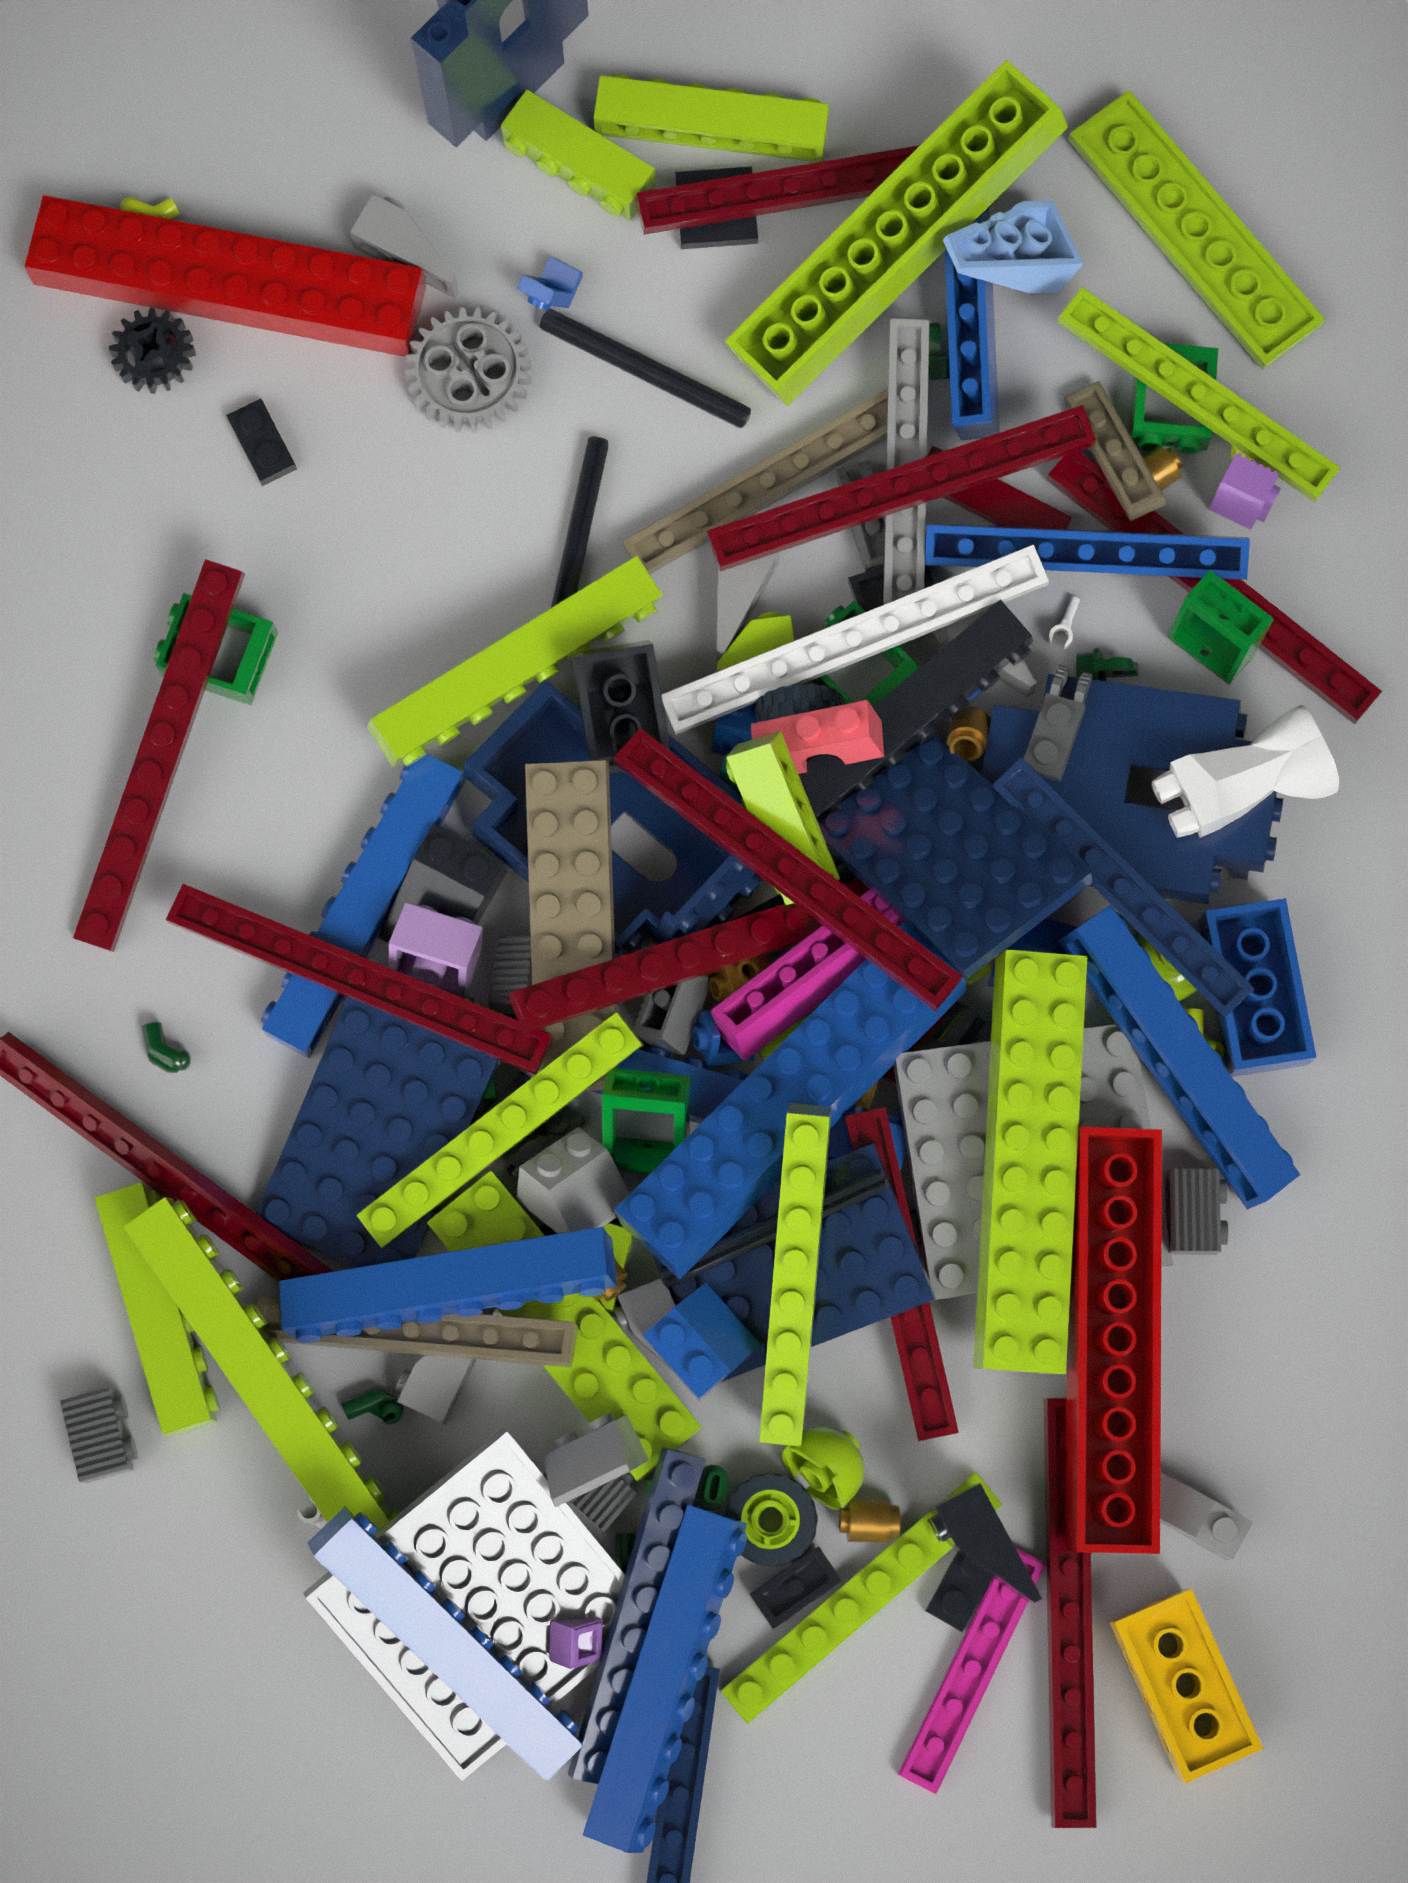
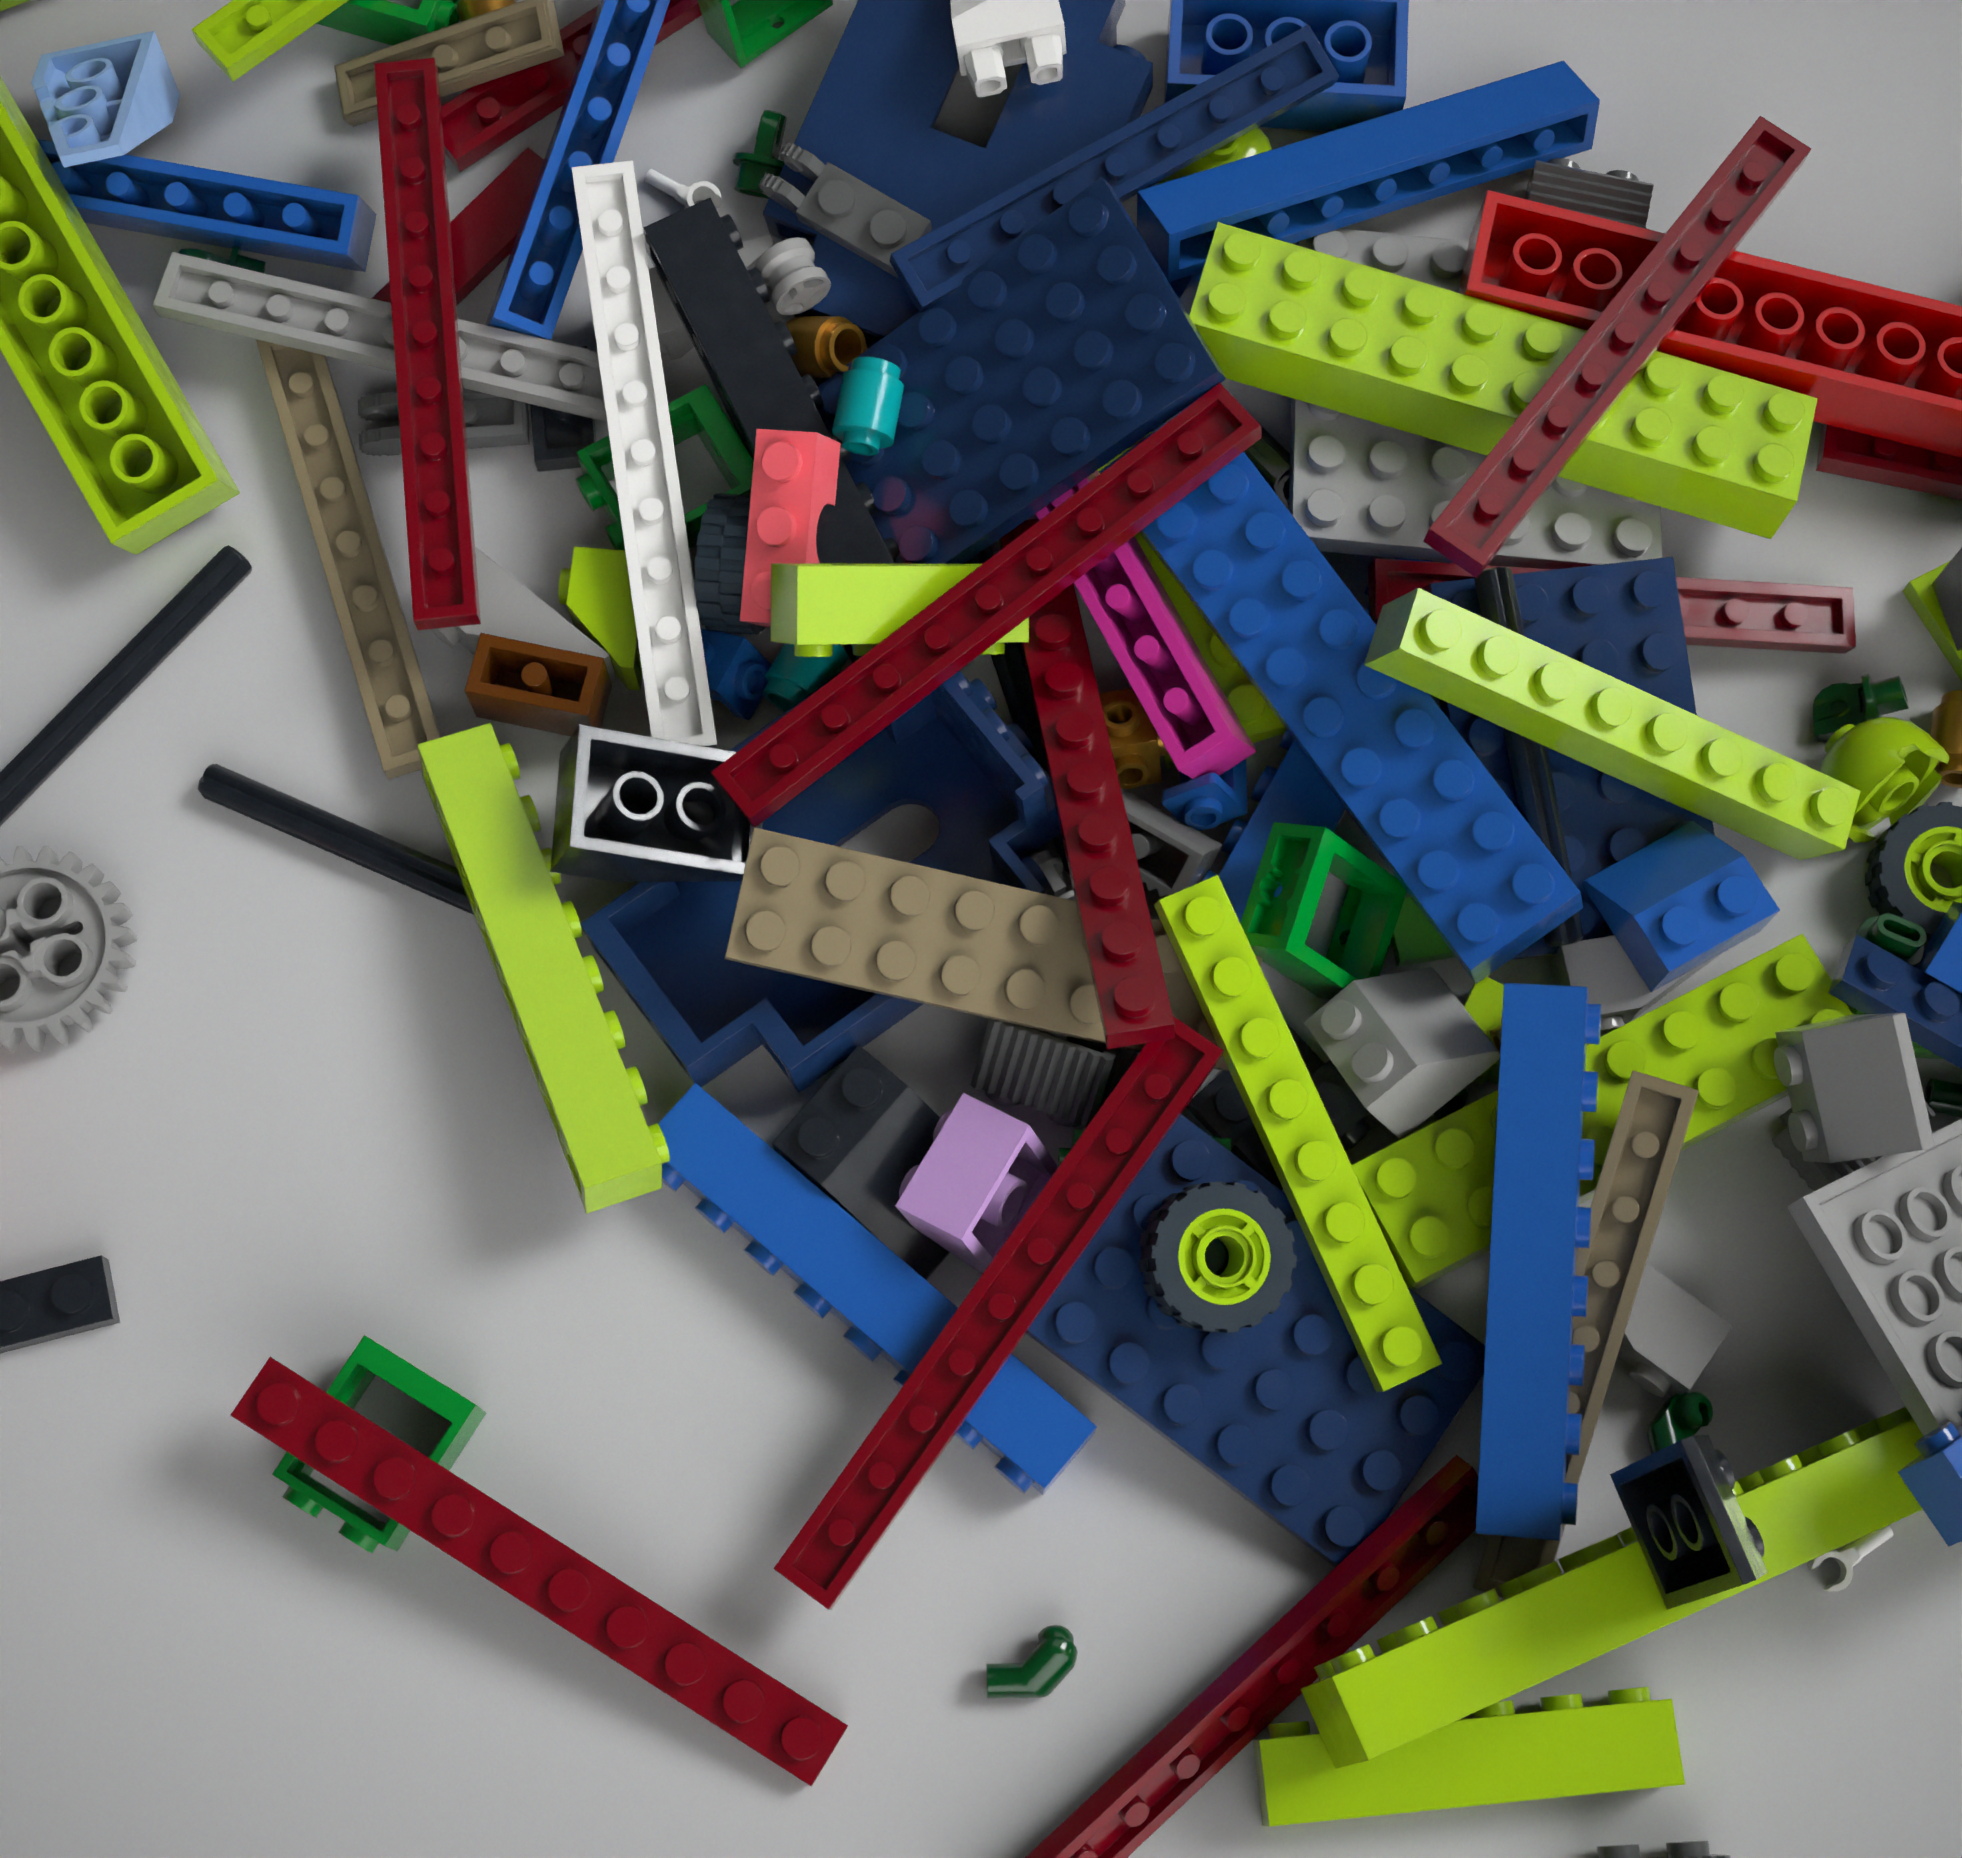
camera: 80 degrees left, 5 degrees down
(293, 1390) = (1690, 1521): none -> black slope
(384, 1099) = (1257, 1250): none -> black wheel
(694, 618) = (537, 685): none -> reddish brown brick
(878, 1449) = (1856, 703): none -> dark green piece
(916, 769) = (868, 406): none -> teal brick
(1001, 702) = (793, 276): none -> light grey wheel
(1061, 1230) = (1615, 348): none -> dark red plate

